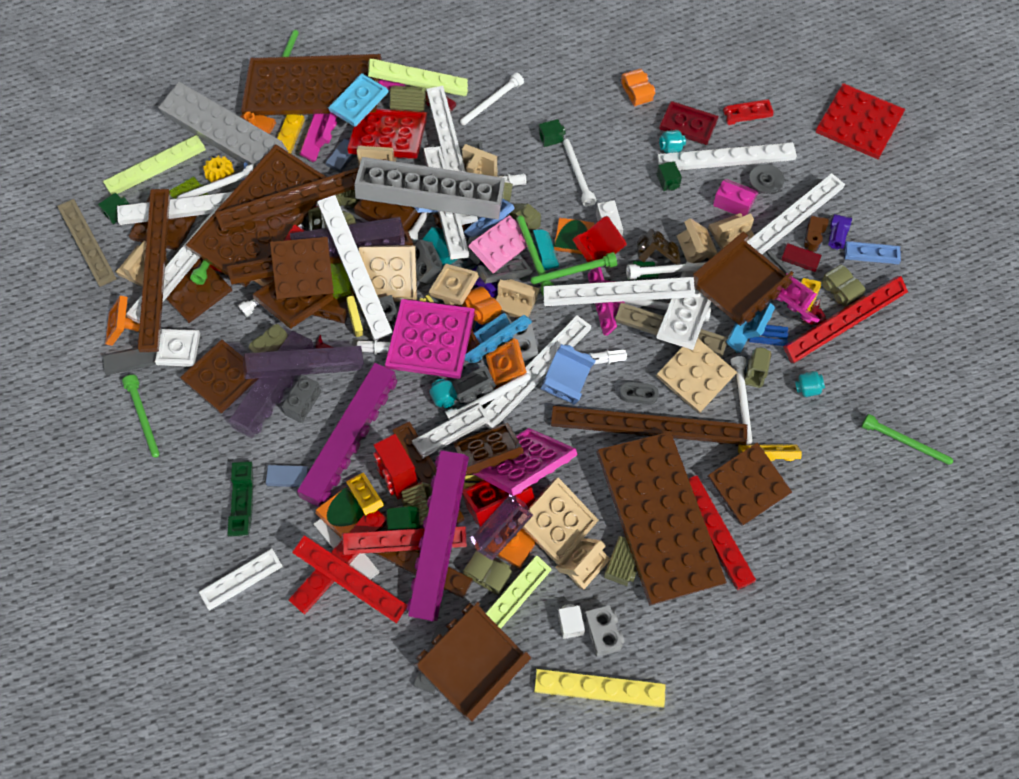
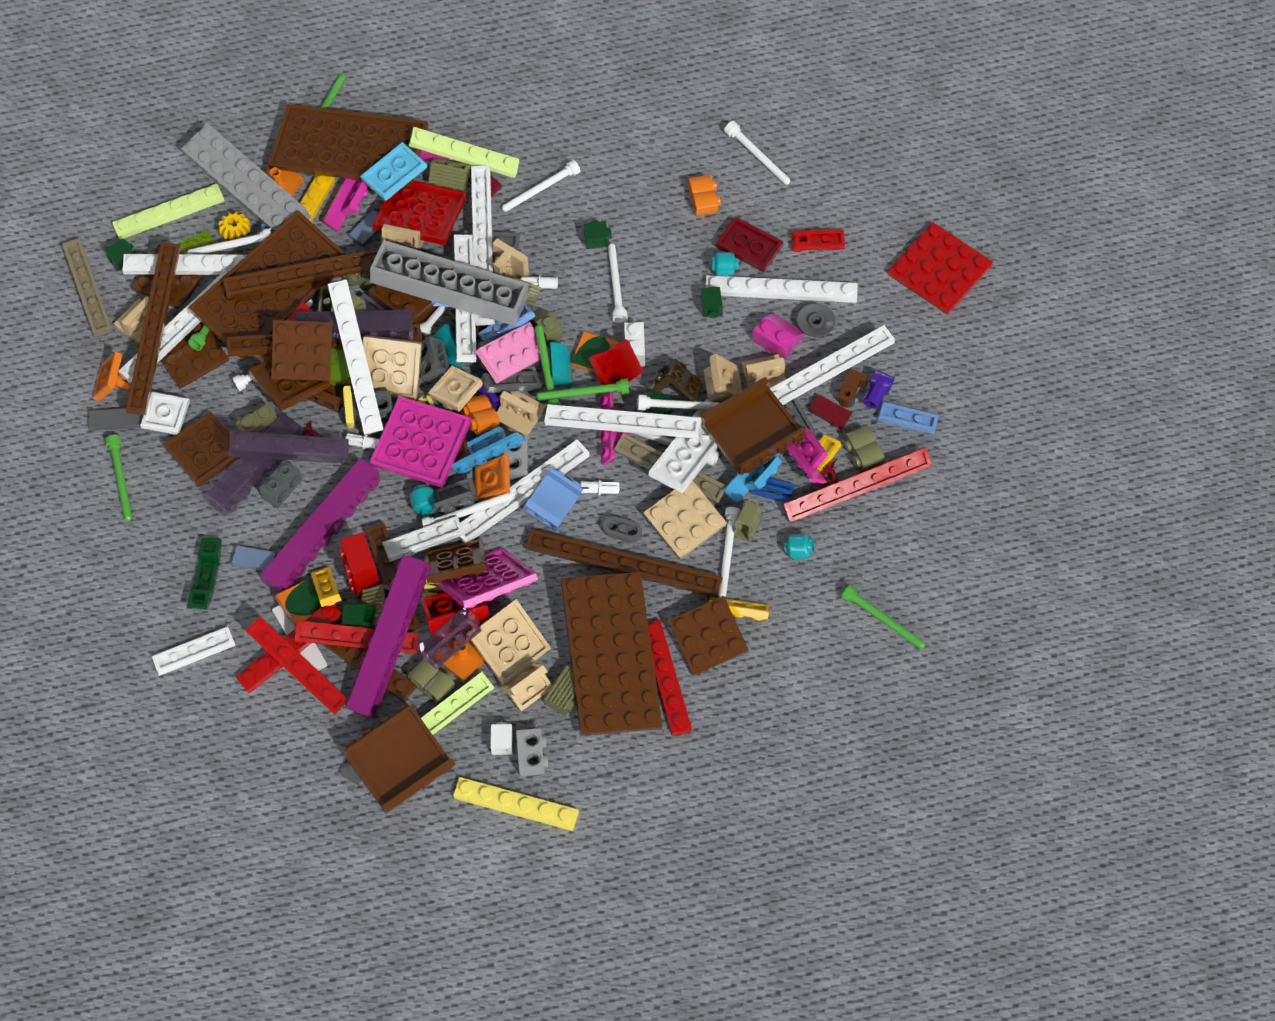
camera: 10 degrees right, 0 degrees up
(649, 31) = (733, 129): none -> white piece

